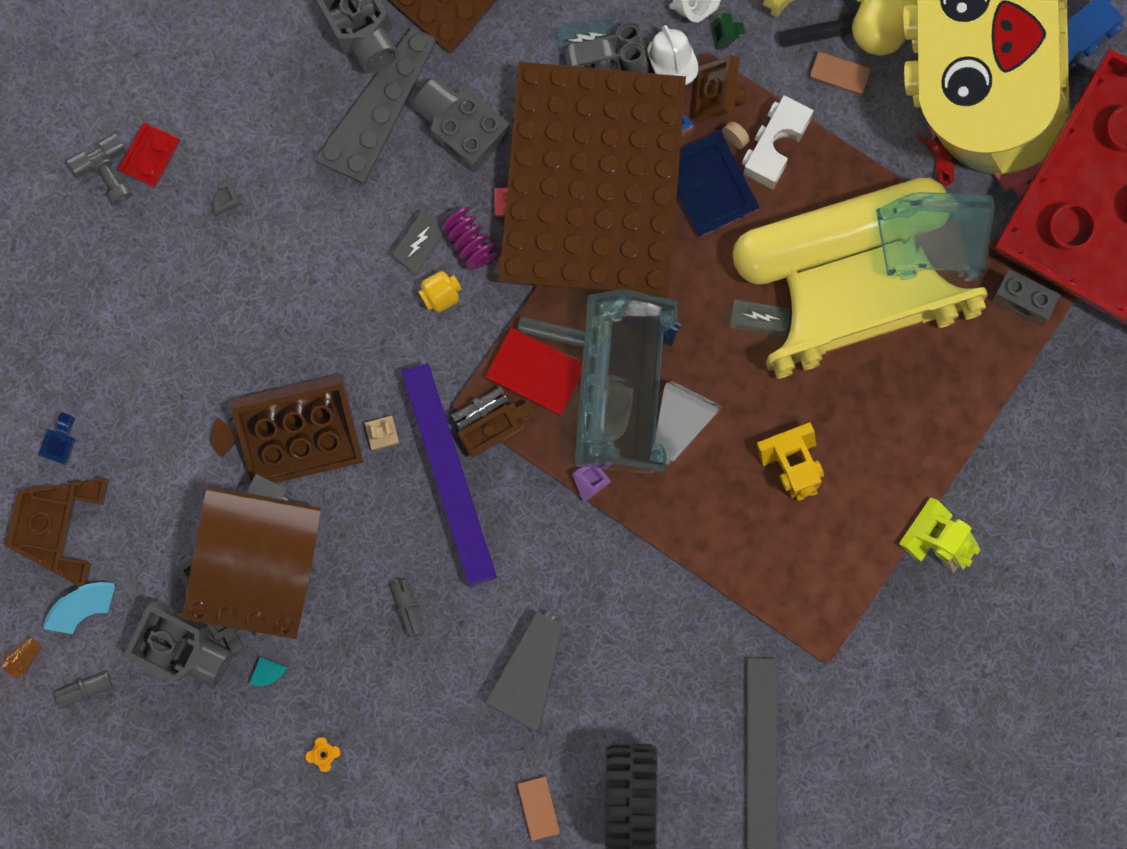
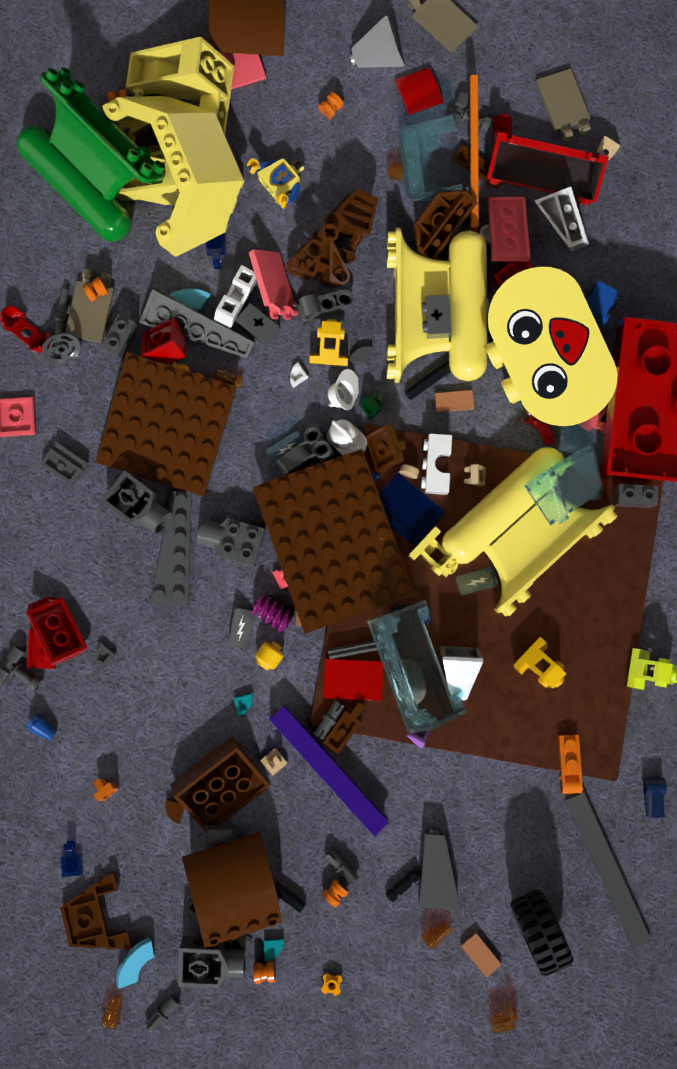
camera: 30 degrees left, 5 degrees up
(101, 253) = (40, 727): none -> blue cone
(145, 369) = (104, 789): none -> orange tile
(179, 137) = (55, 629): none -> red slope
(240, 696) = (264, 972): none -> orange wheel
(319, 615) = (289, 897): none -> black axle
(377, 340) = (243, 703): none -> teal tile
(383, 637) = (335, 893): none -> orange wheel
(476, 670) = (402, 885): none -> black axle
(490, 755) = (435, 935): none -> clear orange cone
(712, 244) = (427, 546): none -> light yellow tile
(774, 611) = (570, 764): none -> orange plate
(824, 179) = (477, 475): none -> tan tile
(872, 701) = (654, 796): none -> dark blue piece

